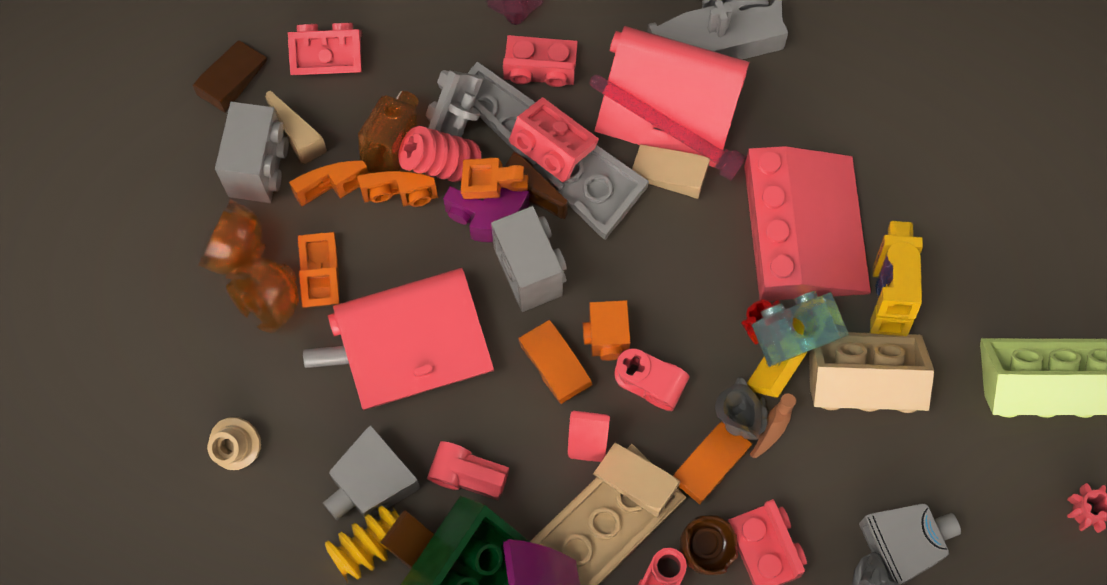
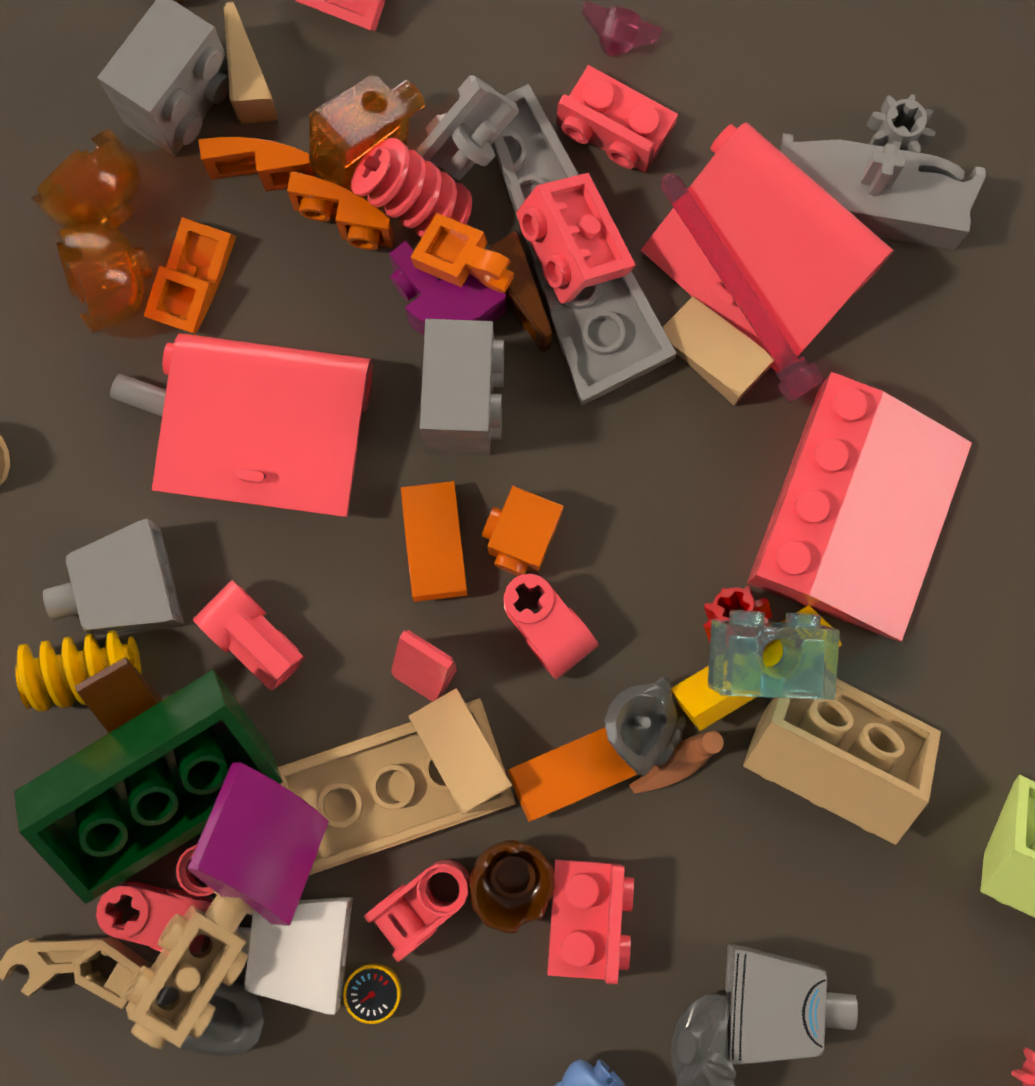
camera: 25 degrees right, 10 degrees up
(897, 281) = (945, 648): yellow hips -> none

